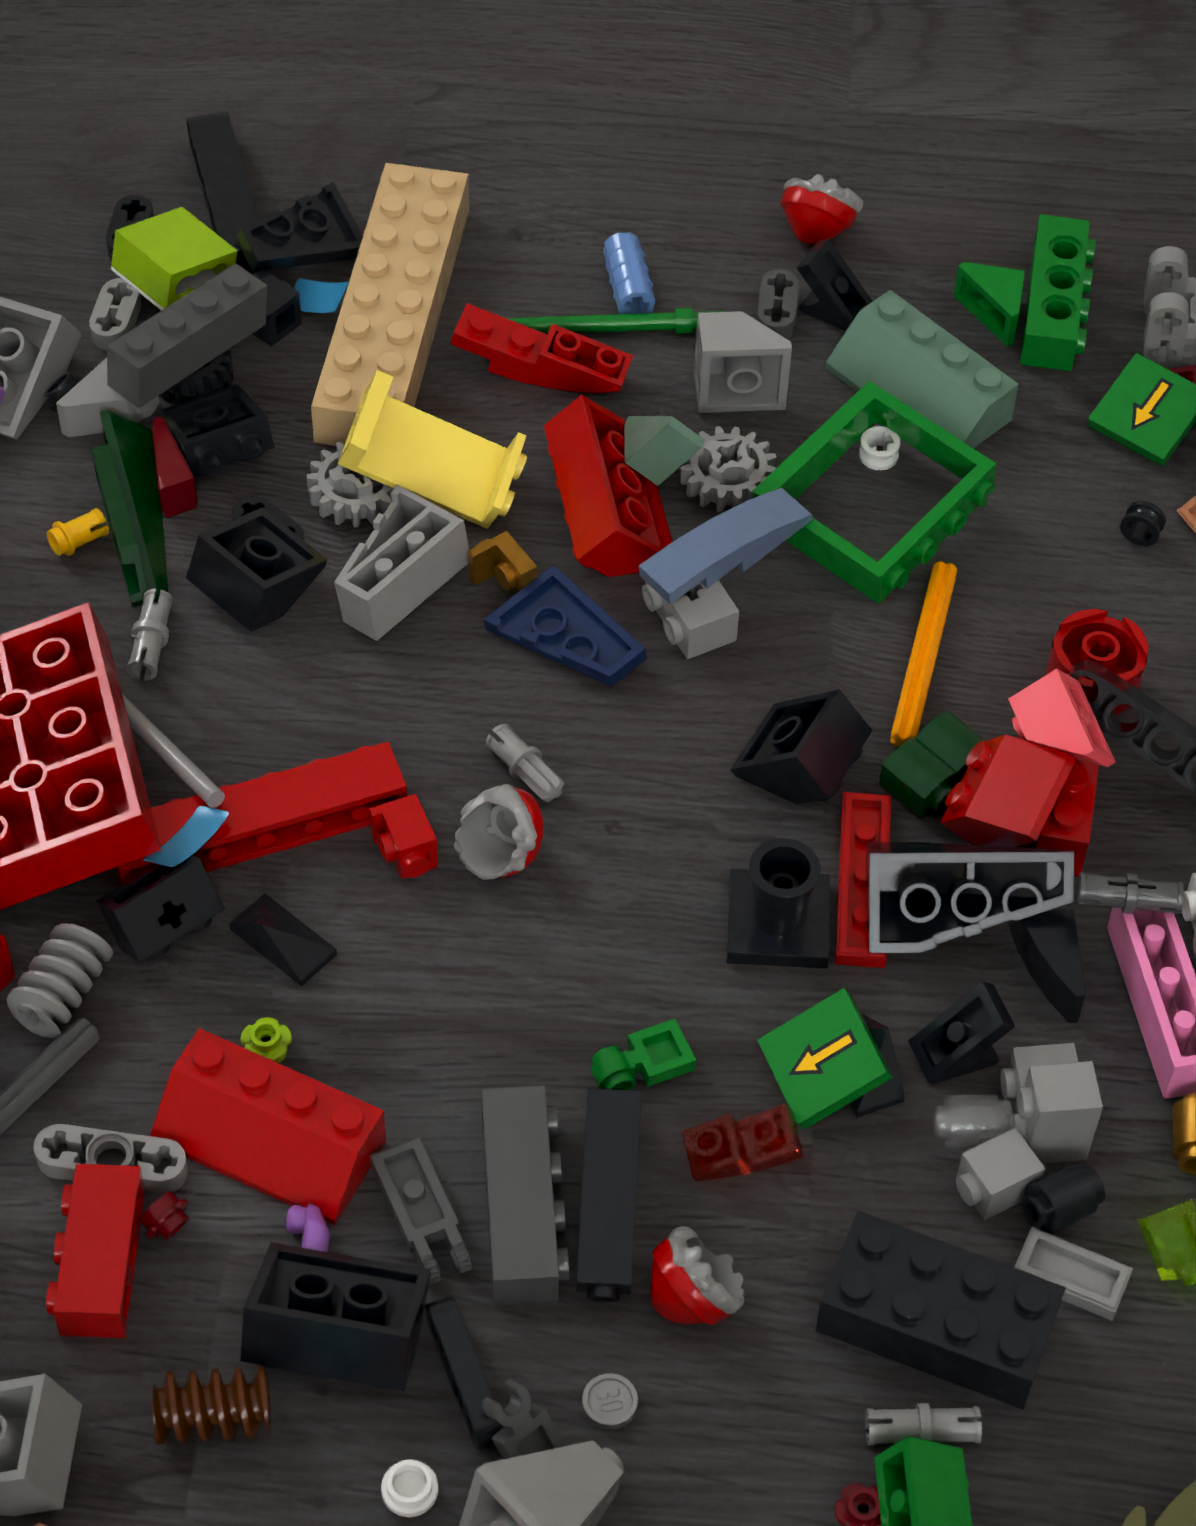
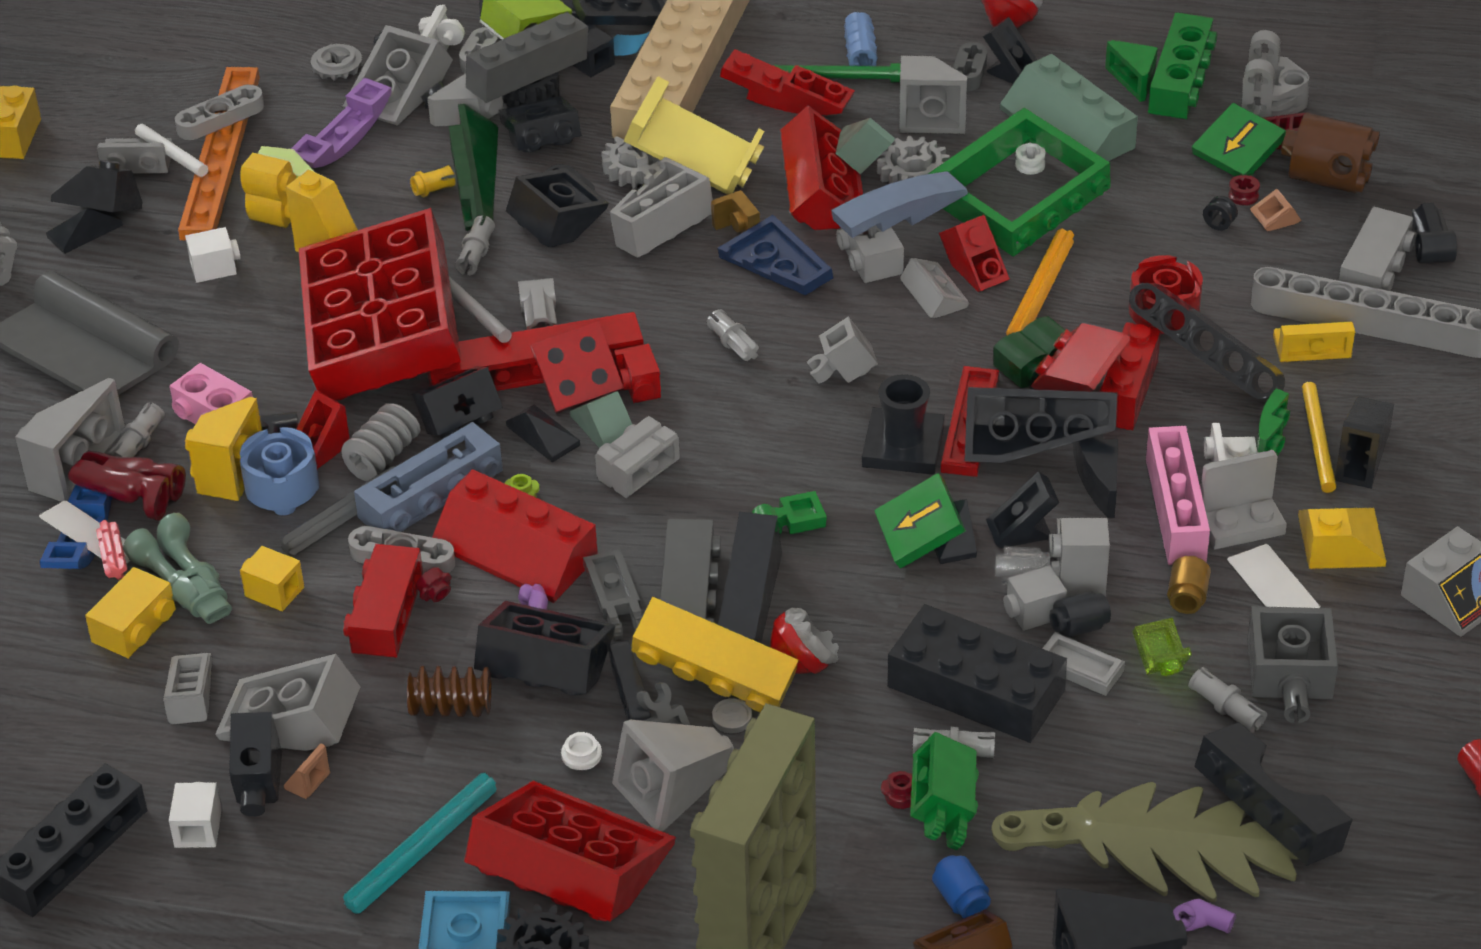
camera: 10 degrees right, 10 degrees down
(57, 287) = (441, 28): none -> white hips
(135, 1040) = (426, 480): none -> sand blue brick
(174, 476) = (505, 148): dark red slope -> none
(190, 837) = (491, 353): dark azure sticker -> none
(250, 725) = (538, 302): none -> light grey piece
(320, 837) = (577, 367): none -> red tile
(369, 919) = (603, 418): none -> sand green slope
(420, 976) = (637, 456): none -> light grey brick
(499, 832) = (706, 371): light grey hair -> none
(579, 1322) = (713, 655): none -> yellow brick
(683, 784) = (844, 351): none -> light grey brick
(744, 1146) = (844, 574): clear red slope -> none
(780, 662) = (932, 288): none -> light grey slope
(804, 747) = (940, 336): black slope -> none
(831, 609) = (975, 253): none -> red slope
(1060, 717) = (1123, 309): coral slope -> none
(1129, 893) = (1156, 423): dark grey pin -> none
(1165, 492) = (1244, 190): none -> dark red bush

